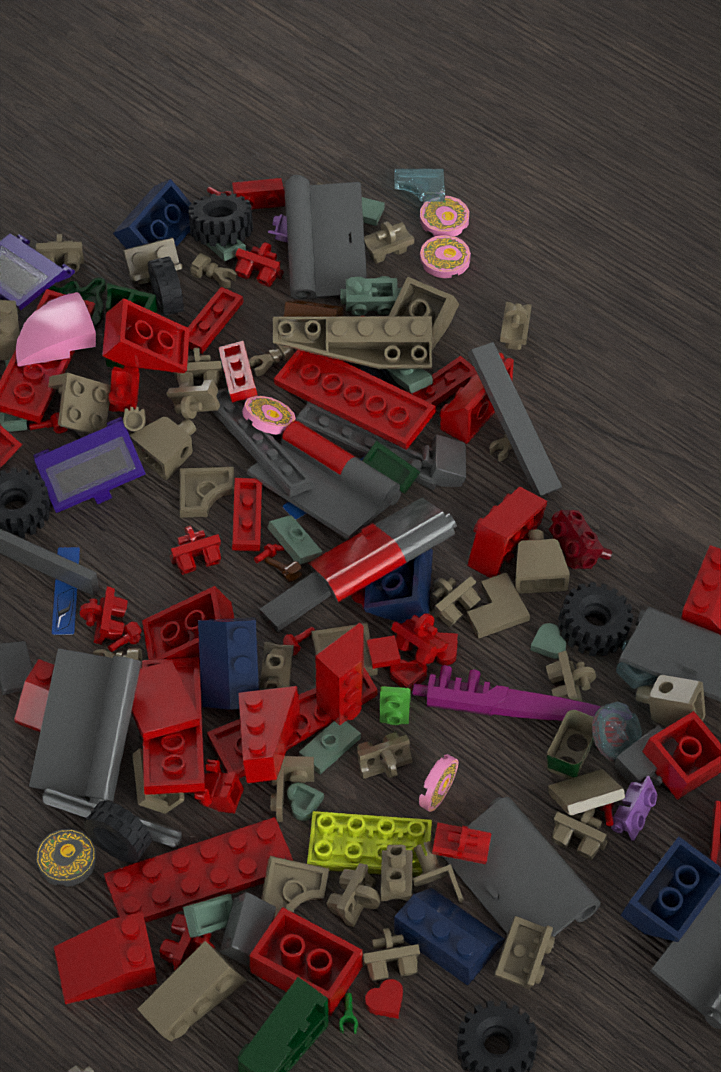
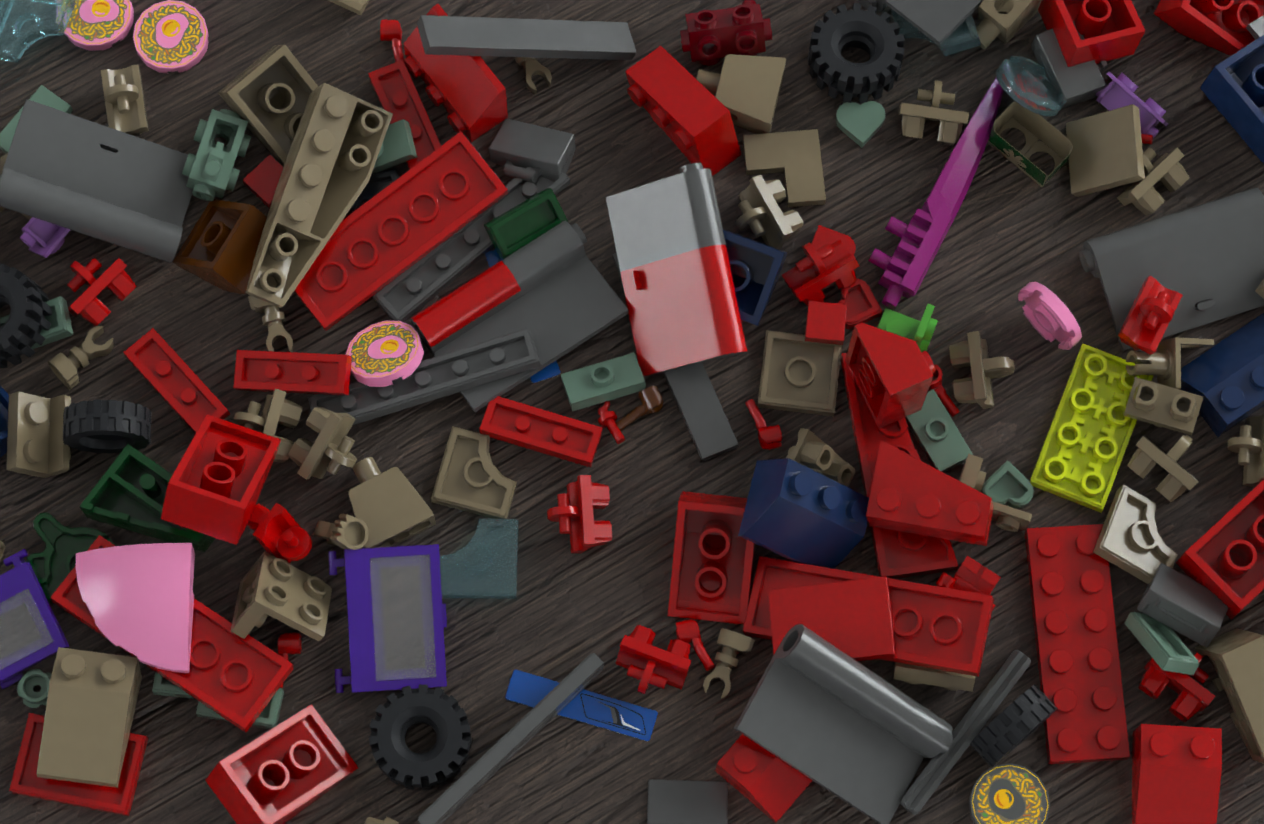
camera: 75 degrees left, 20 degrees up
(146, 512) = (485, 565): none -> clear light blue tile
(366, 736) = (941, 392): none -> red hand

